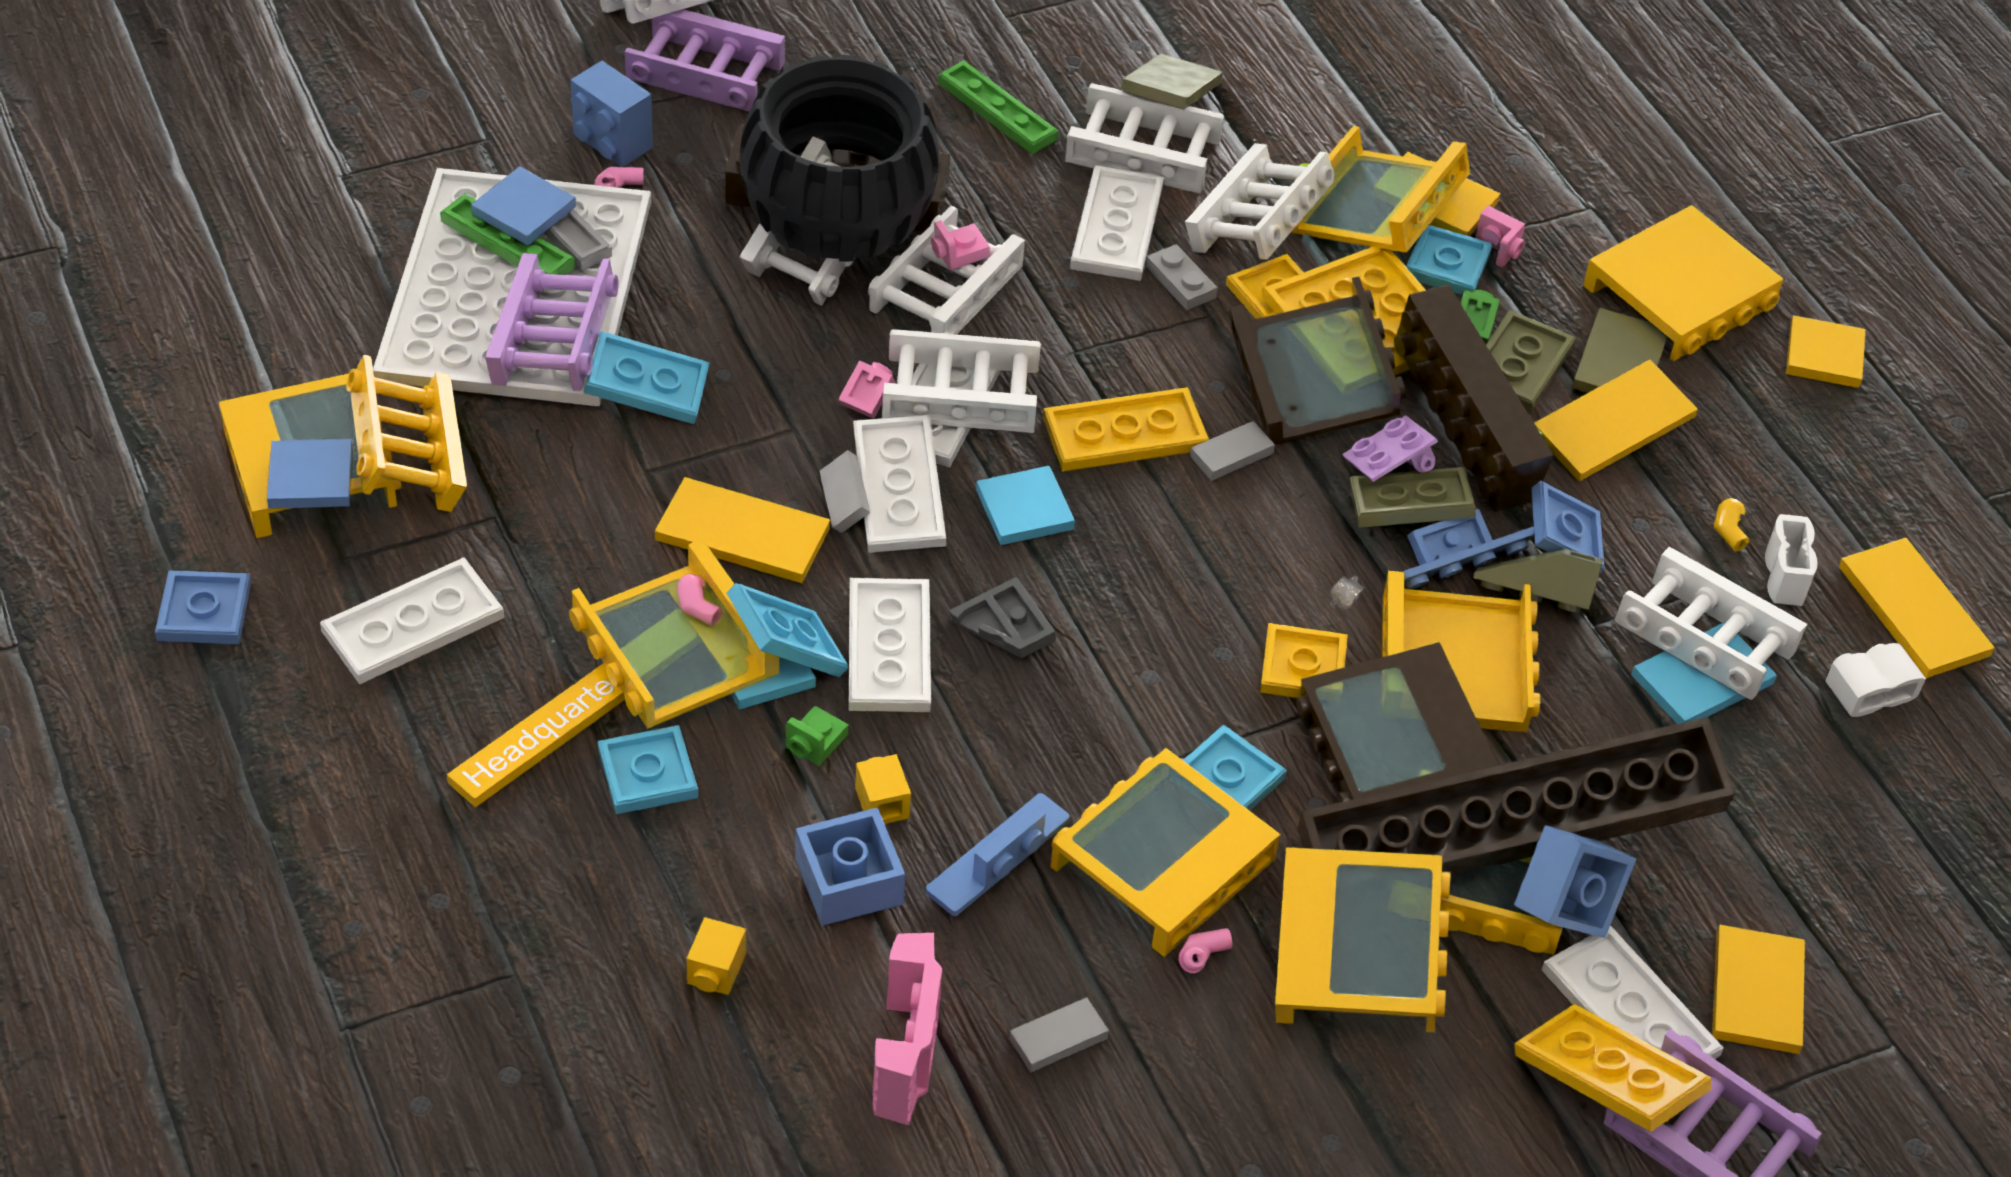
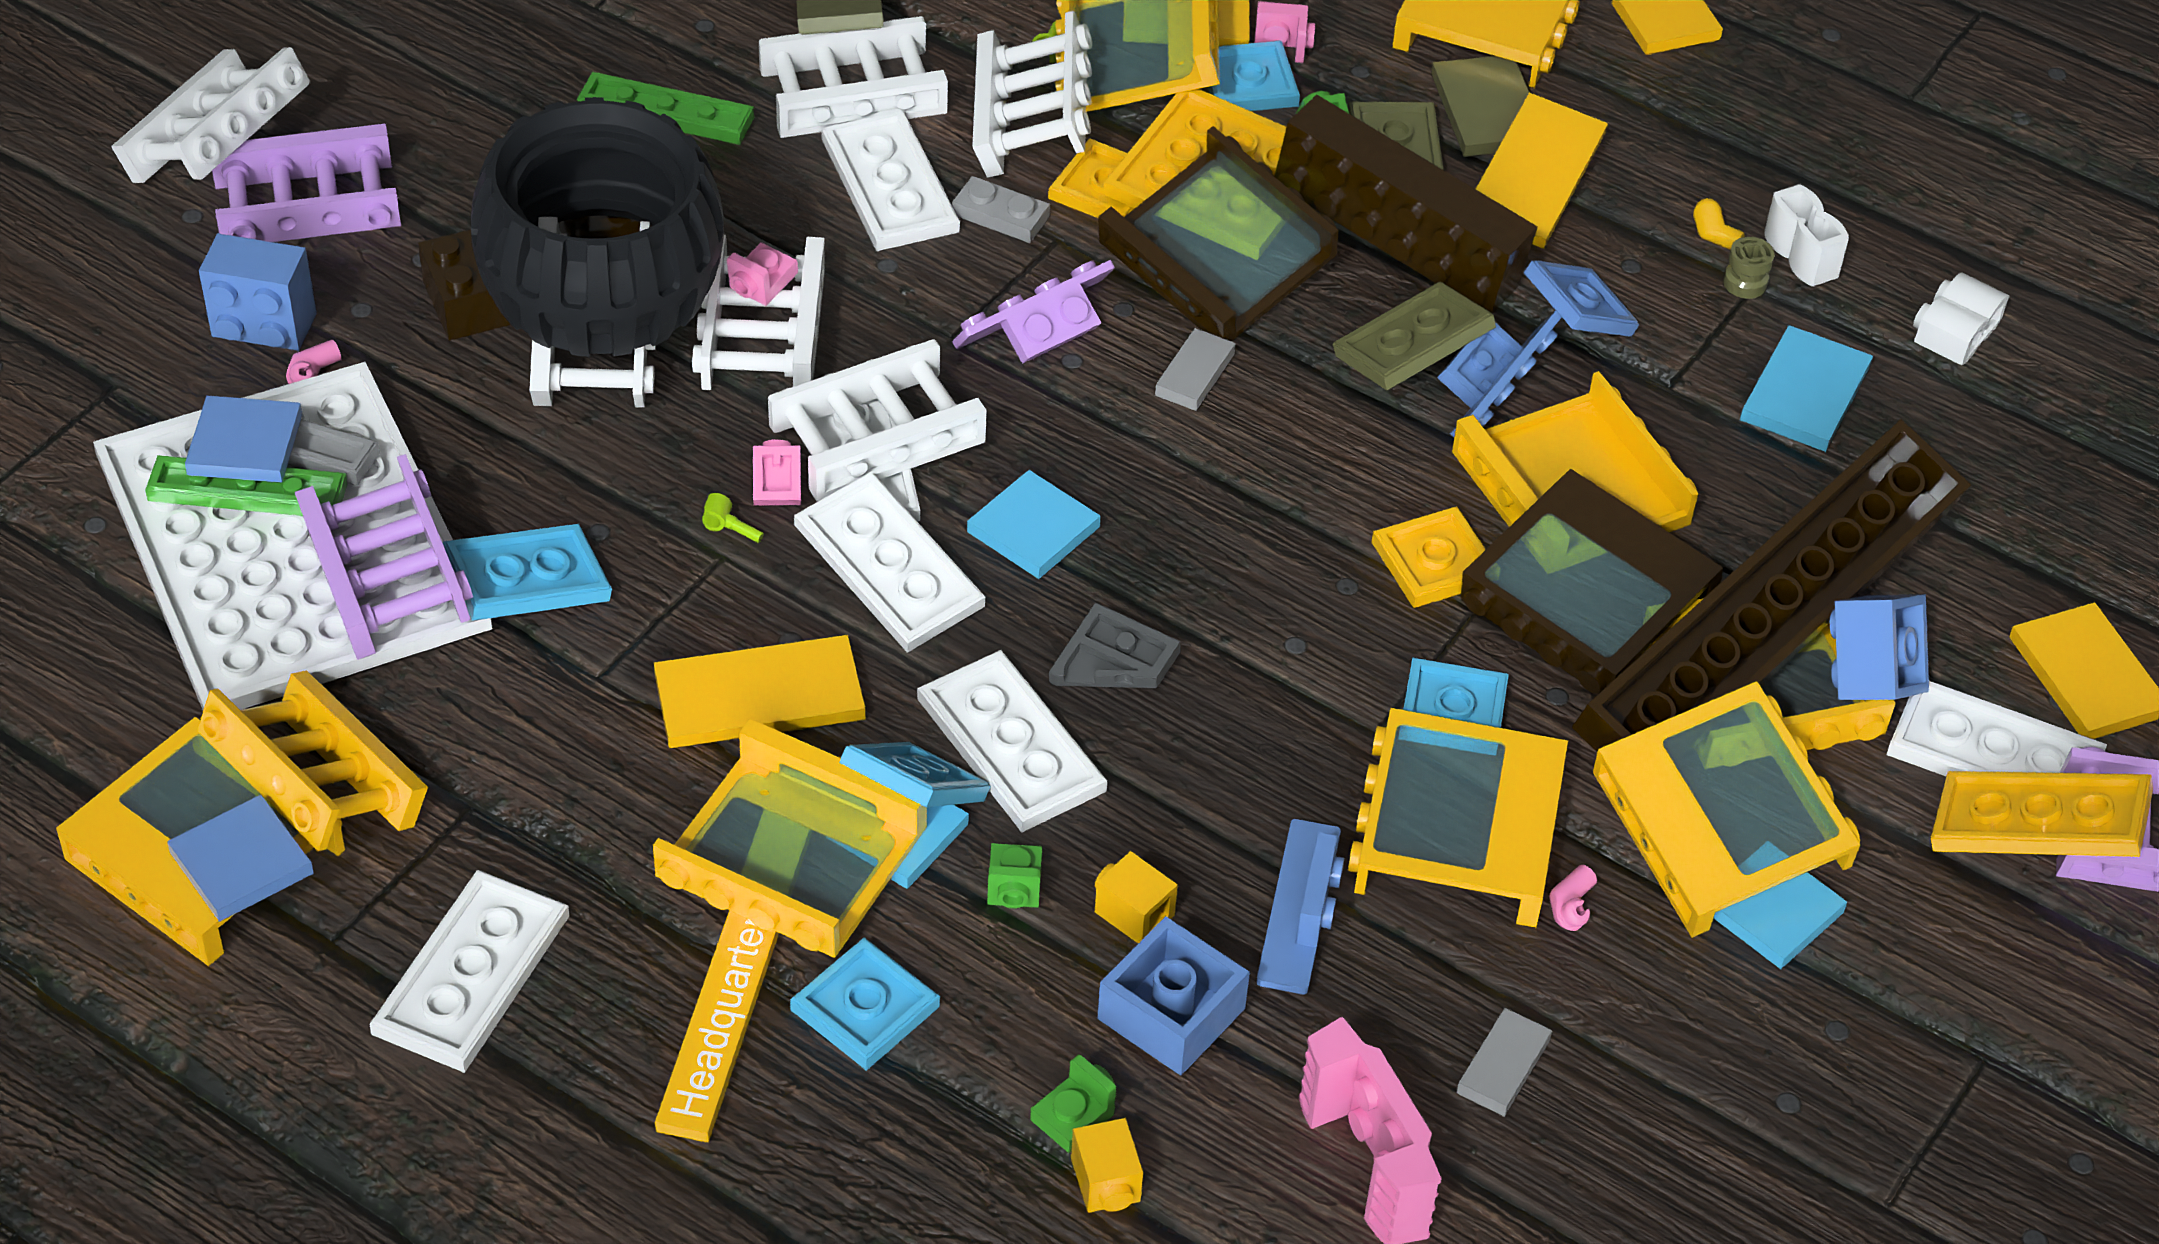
camera: 30 degrees left, 0 degrees up
(203, 607) = (213, 1075): medium blue tile -> none
(693, 602) = (782, 792): bright pink arm -> none
(734, 905) = (1079, 1101): none -> bright green bracket
(808, 400) = (718, 516): none -> lime hand
(844, 491) = (840, 597): light grey tile -> none
(1124, 429) = (1071, 396): yellow tile -> none
(1147, 367) = (1044, 320): none -> lavender bracket
(1346, 592) = (1424, 463): clear plate -> none
(1355, 1041) = (1783, 917): none -> medium azure tile
(1395, 444) = (1360, 294): lavender hinge -> none
(1555, 575) = (1613, 346): olive slope -> none
(1722, 600) = (1781, 304): white fence -> none
(1730, 559) = (1749, 267): none -> olive wheel
(1916, 607) = (1935, 230): yellow tile -> none

